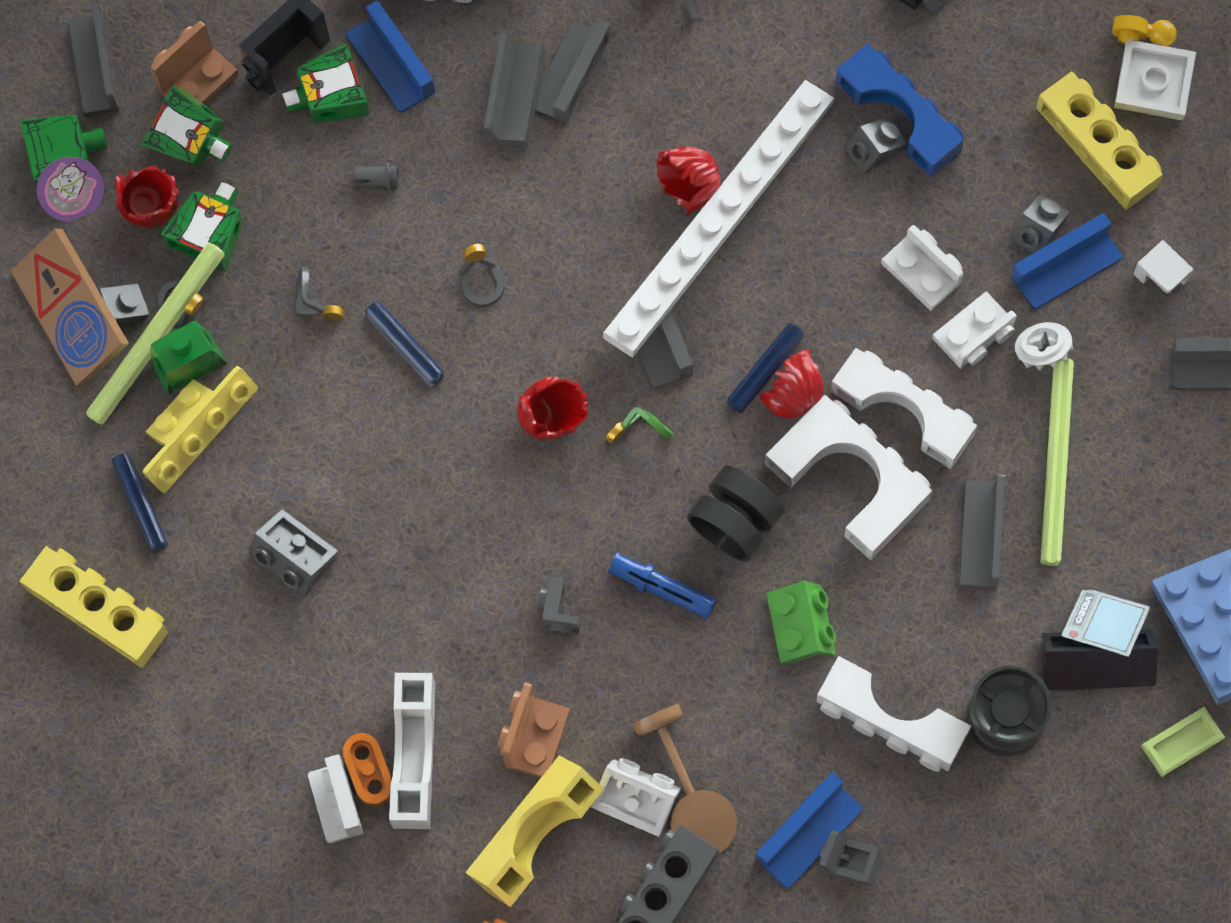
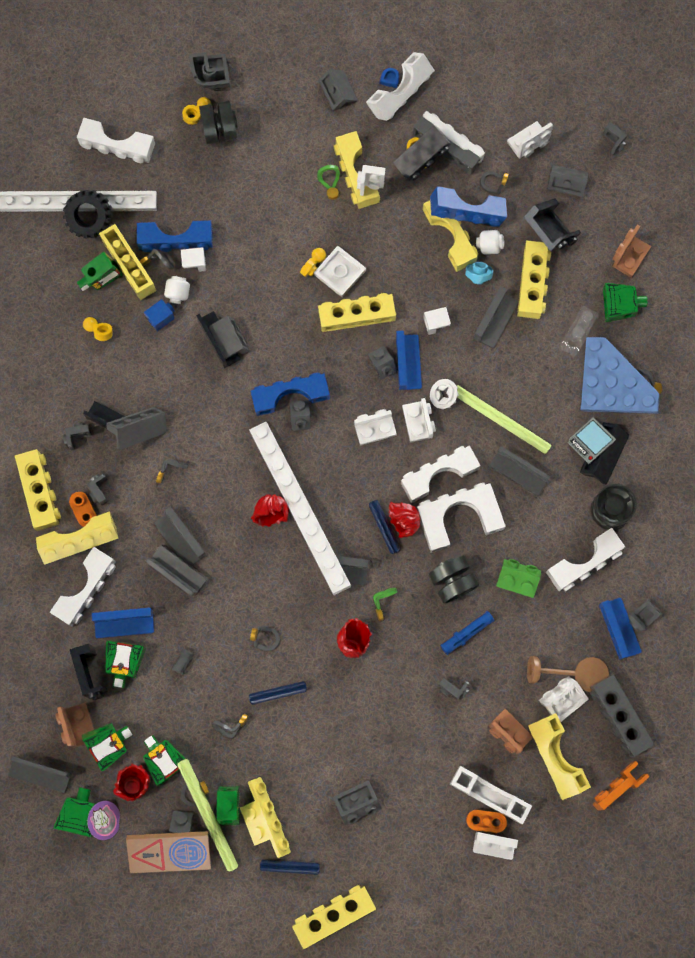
camera: 65 degrees left, 5 degrees up
(1183, 741) = (661, 438): yellowish green tile -> none

